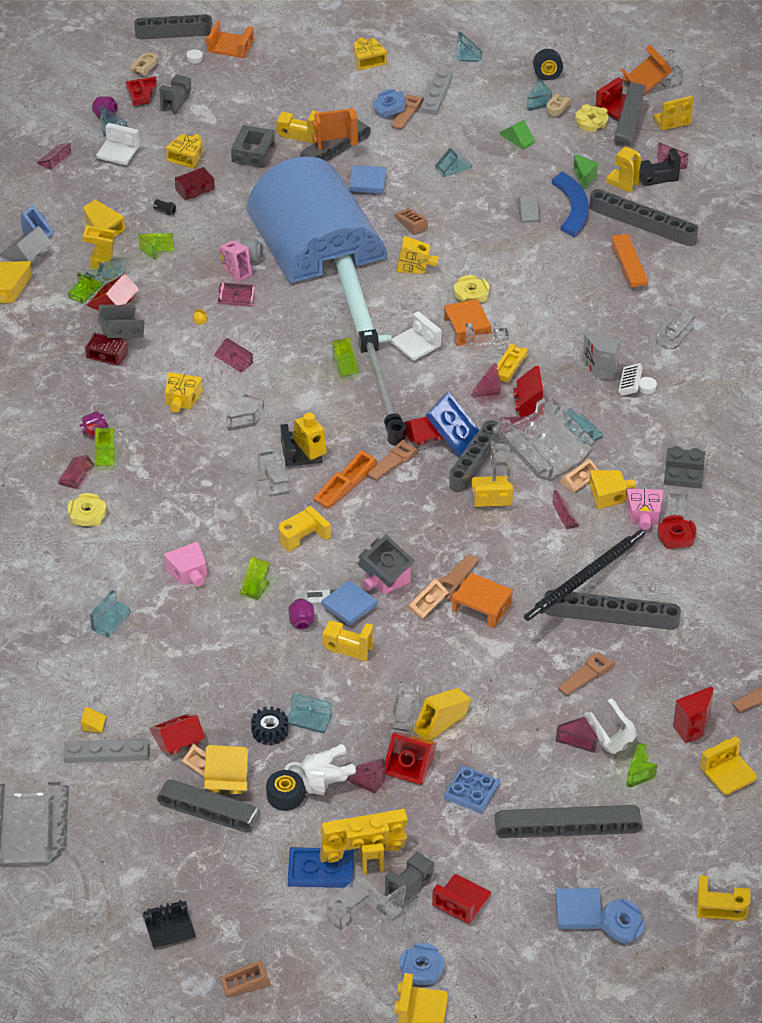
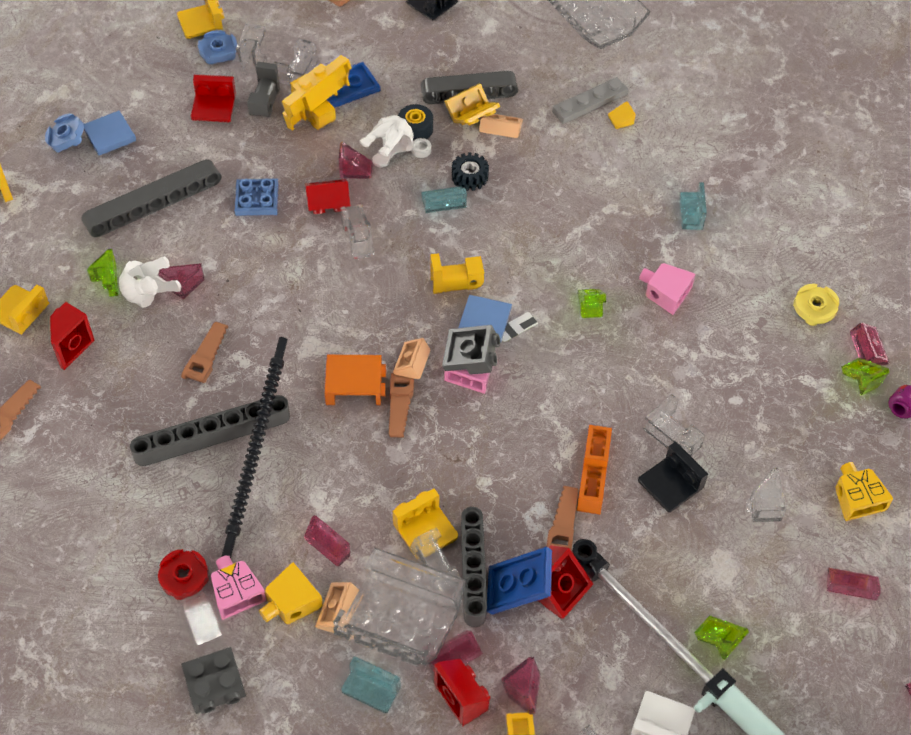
camera: 150 degrees right, 10 degrees up
(178, 733) = (543, 131): red slope -> none
(301, 614) = (519, 282): magenta head -> none
(302, 525) = (595, 380): yellow piece -> none
(310, 436) = (669, 481): yellow torso -> none
(441, 712) = (320, 241): yellow slope -> none

